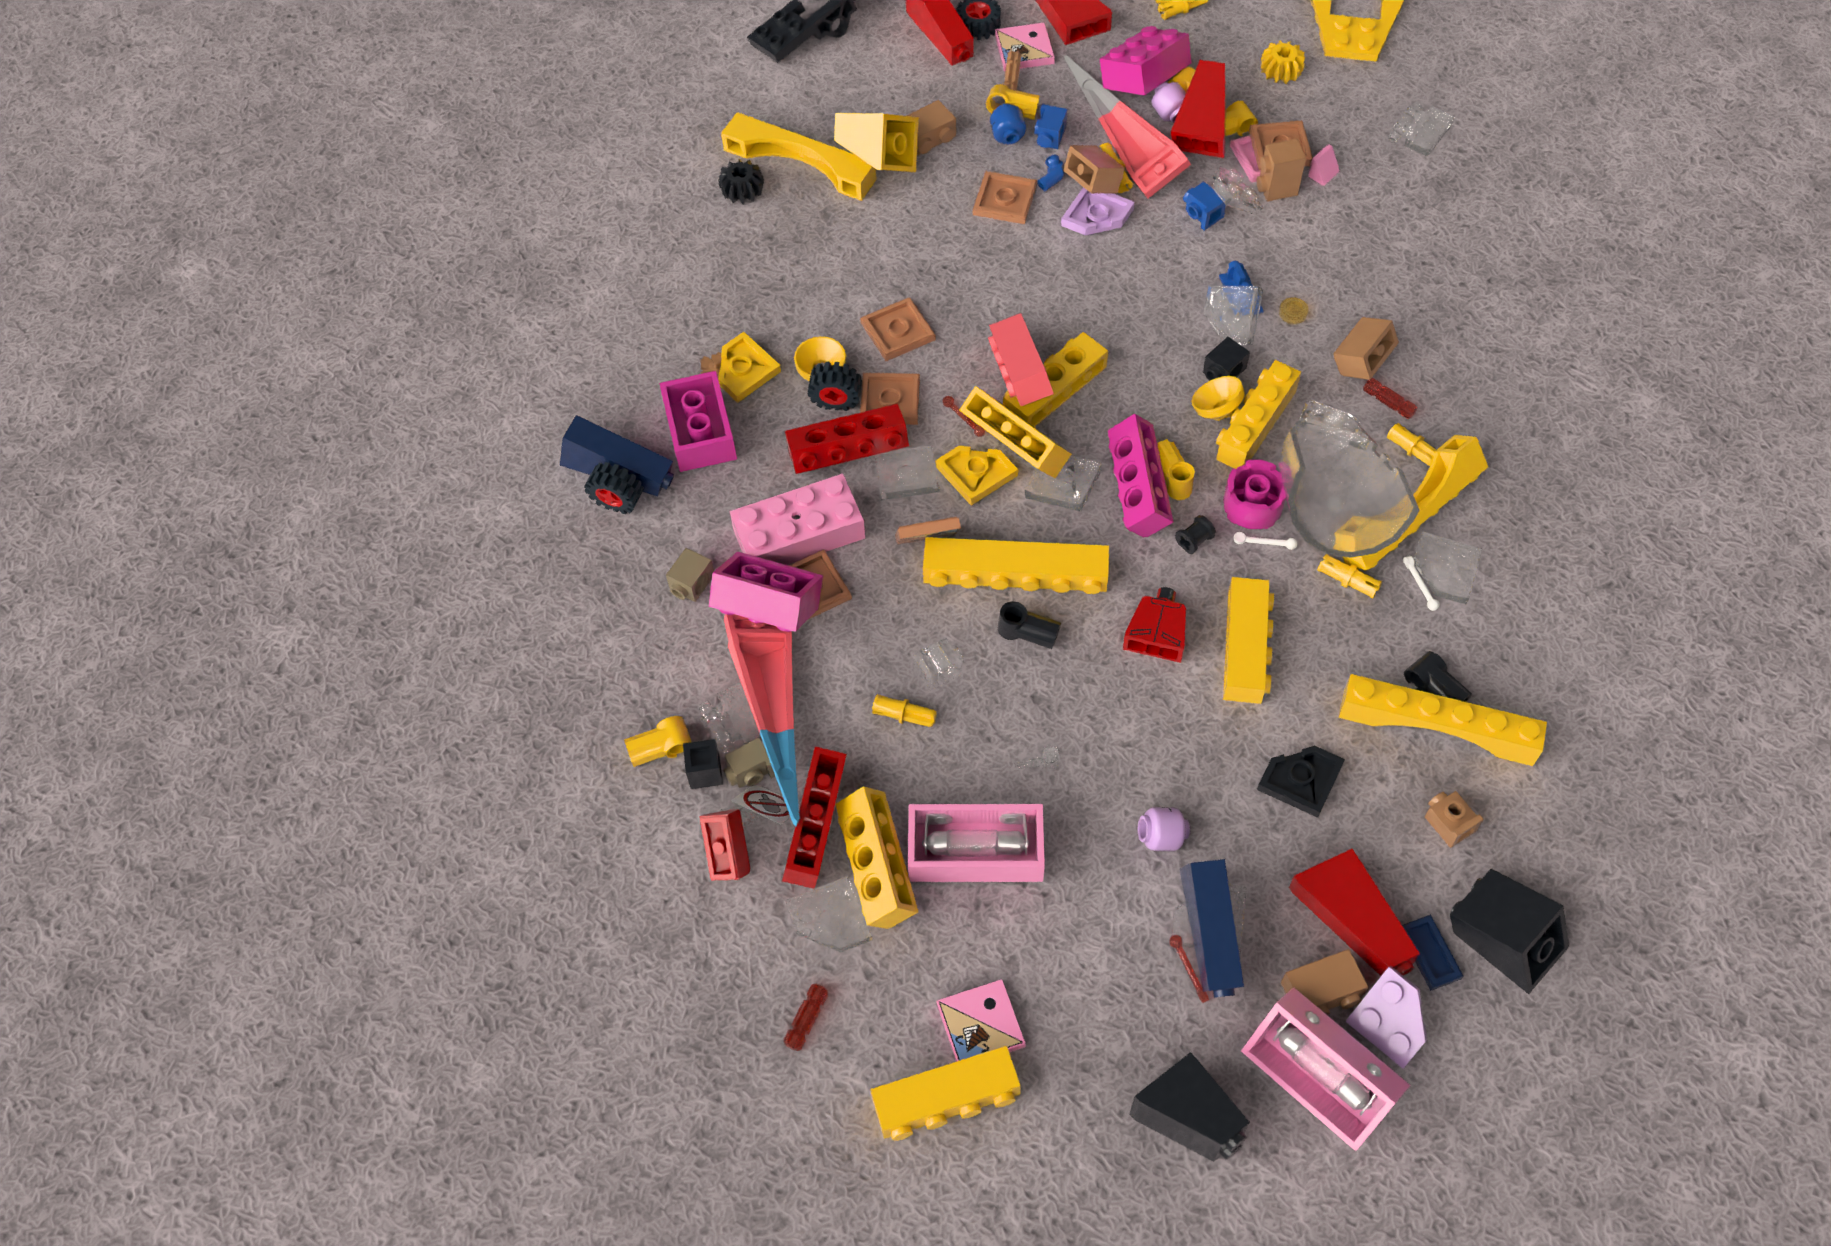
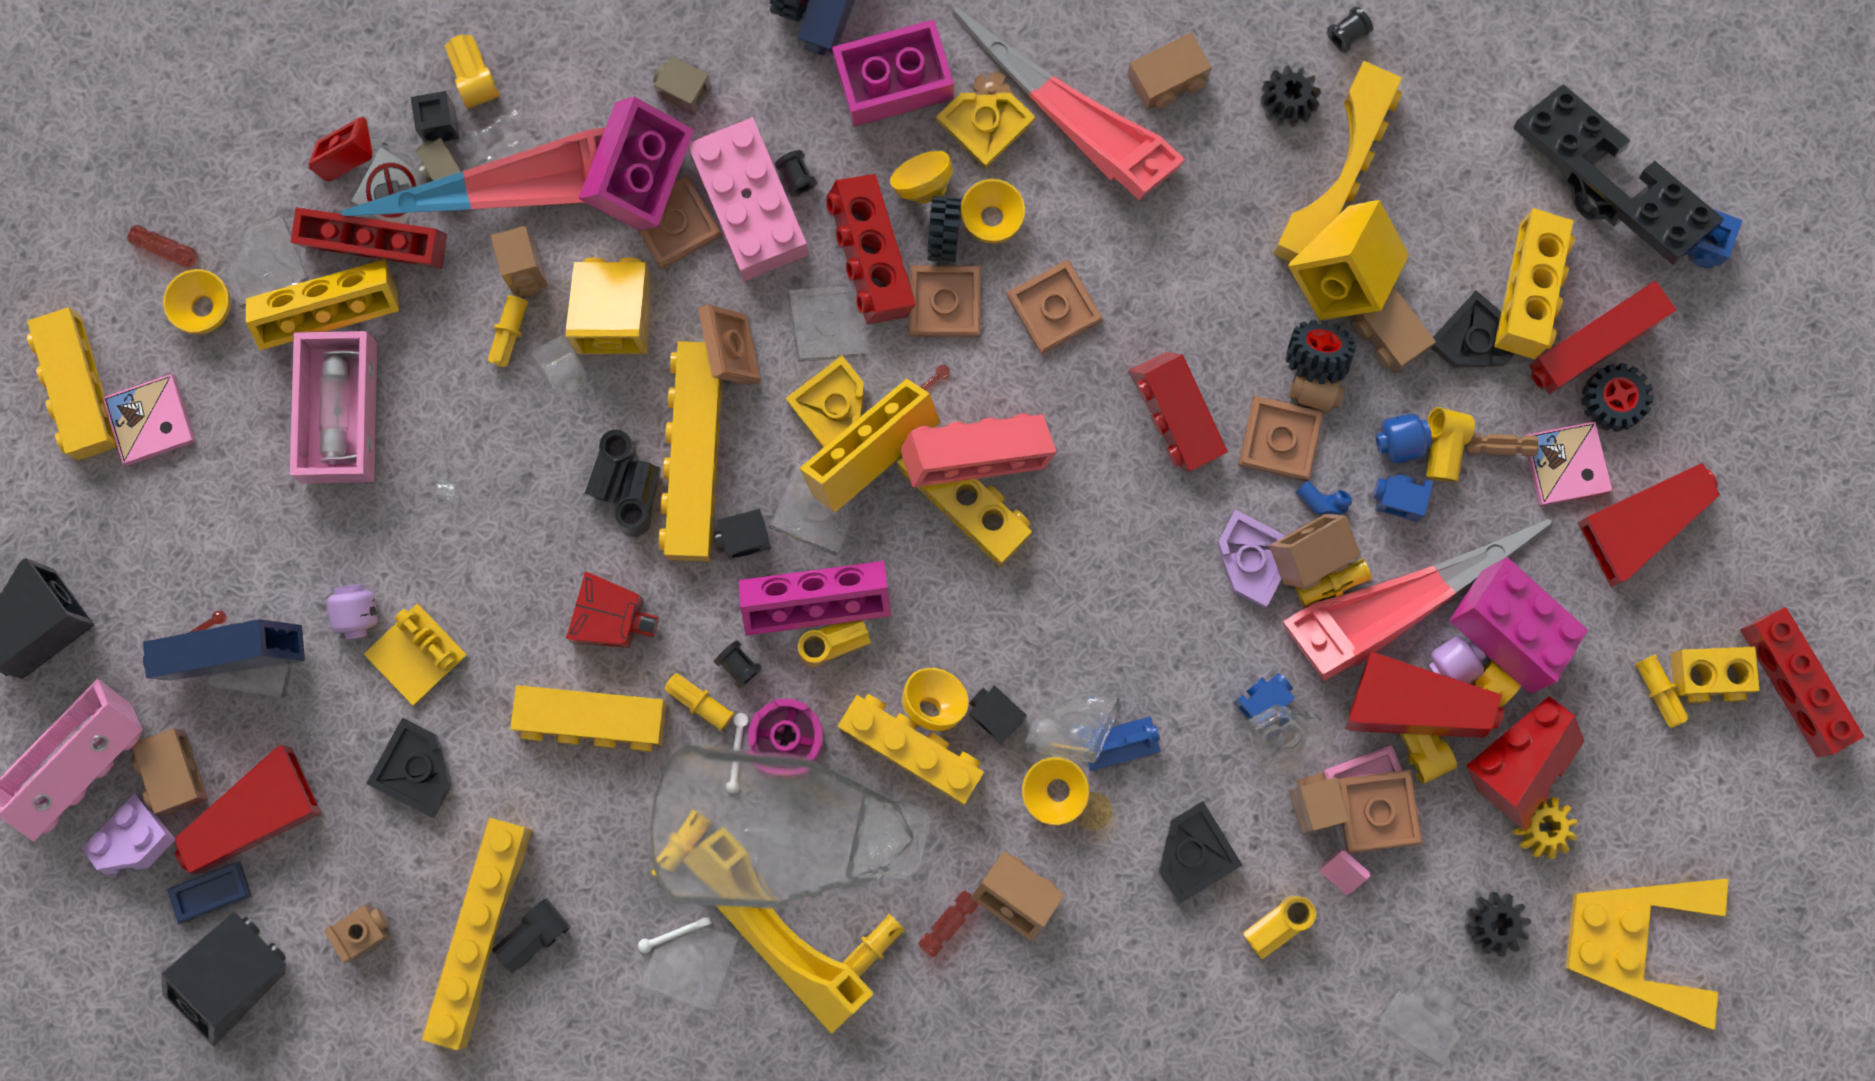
camera: 85 degrees right, 20 degrees up
(692, 147) = (1350, 29): none -> black bush
(714, 250) = (1169, 72): none -> medium nougat brick
(771, 281) = (1110, 141): none -> coral plate
(774, 490) = (796, 173): none -> black bush
(780, 402) = (923, 177): none -> yellow piece
(847, 687) = (519, 261): none -> medium nougat brick
(862, 957) = (186, 290): none -> yellow piece
(886, 622) = (609, 307): none -> yellow slope
(897, 49) = (1516, 329): none -> yellow brick
(929, 84) = (1471, 336): none -> black plate
(943, 164) = (1320, 351): none -> black wheel
(970, 172) = (1317, 395): none -> medium nougat brick
(982, 247) = (1178, 410): none -> red wedge
(1056, 606) = (638, 495): none -> black piece
(1086, 525) = (742, 534): none -> black brick
(1198, 781) = (415, 653): none -> yellow hinge
(1228, 563) = (699, 701): none -> yellow axle
(1247, 64) = (1527, 760): none -> red wedge
(1284, 313) = (1036, 793): none -> yellow piece
(1320, 249) = (1195, 853): none -> black plate
(1352, 87) = (1488, 913): none -> black gear
(1363, 197) = (1276, 928): none -> yellow piece

